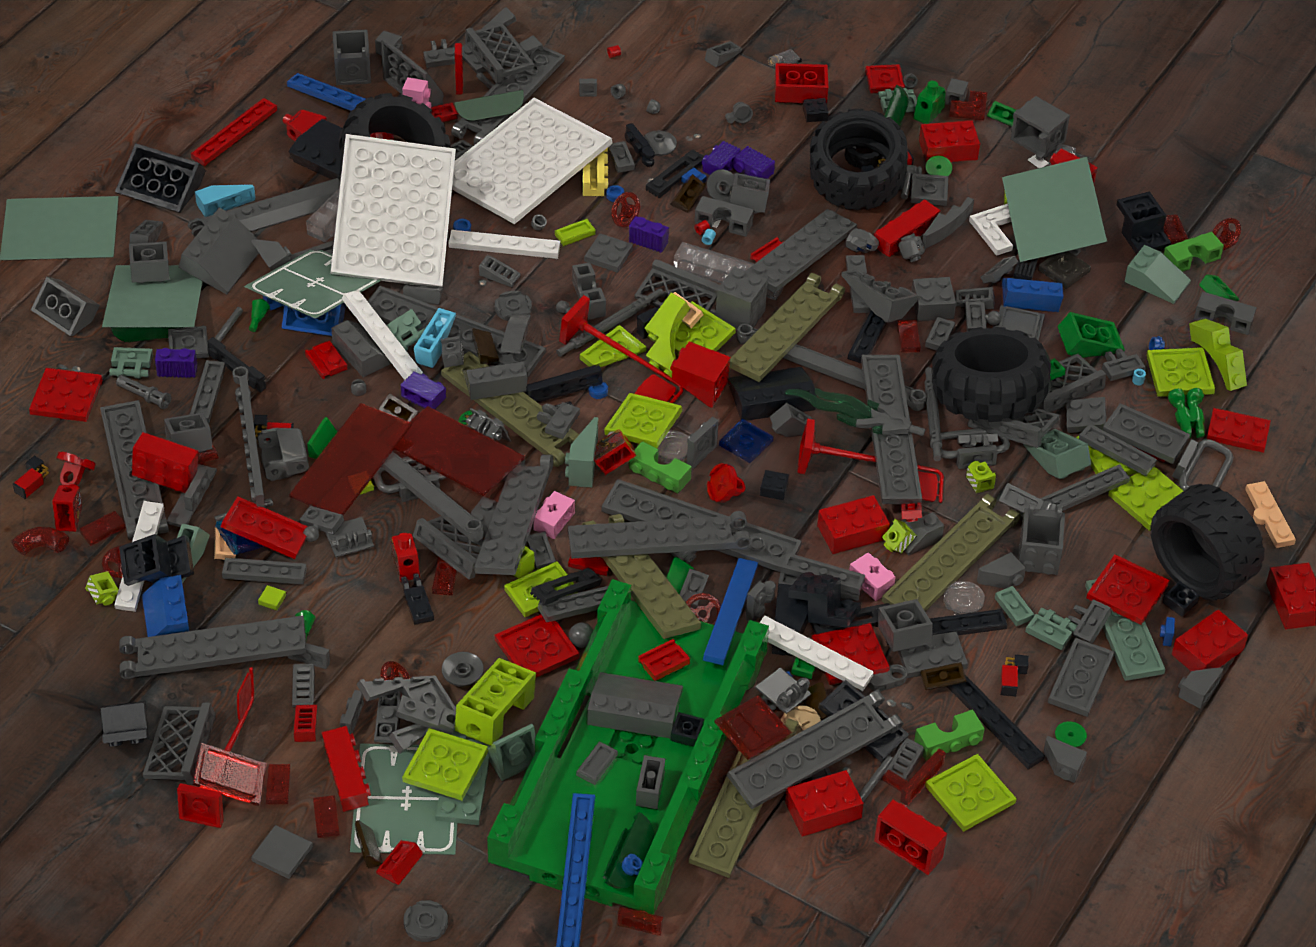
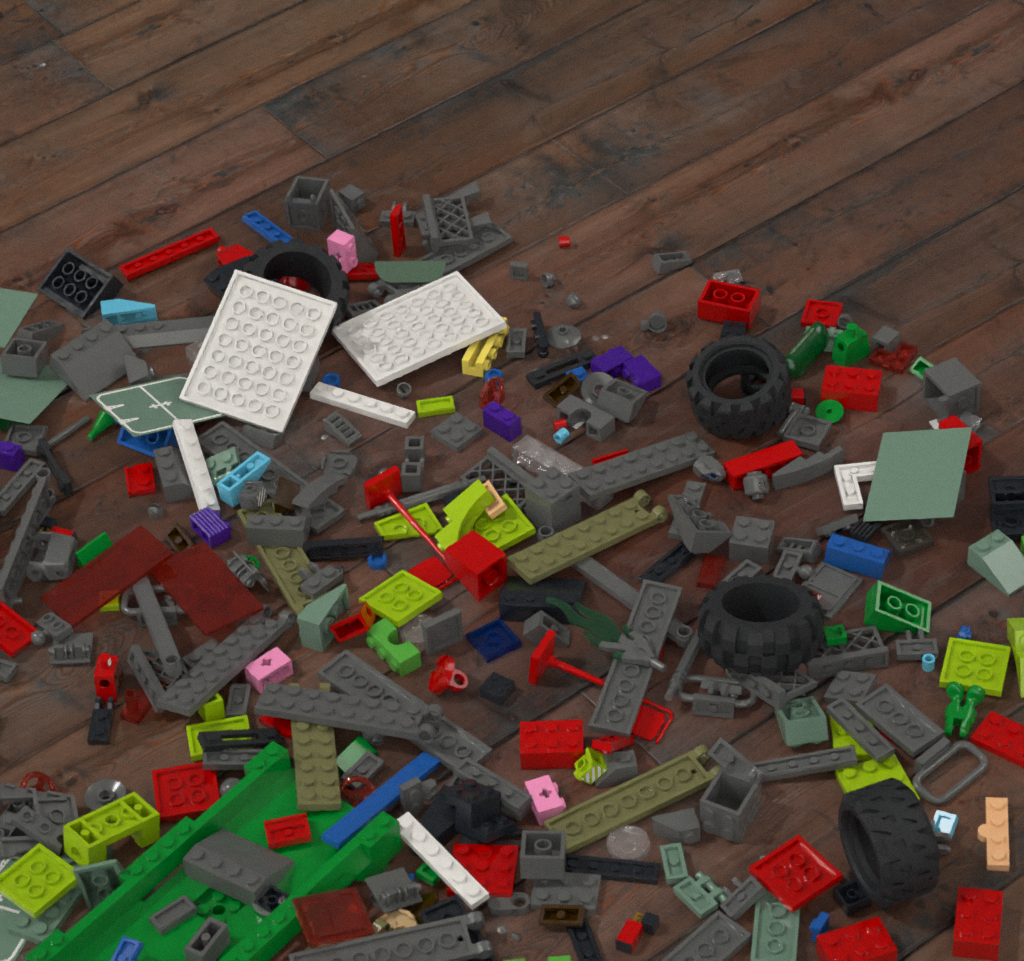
camera: 25 degrees right, 5 degrees down
(978, 473) = (707, 721): lime brick -> none

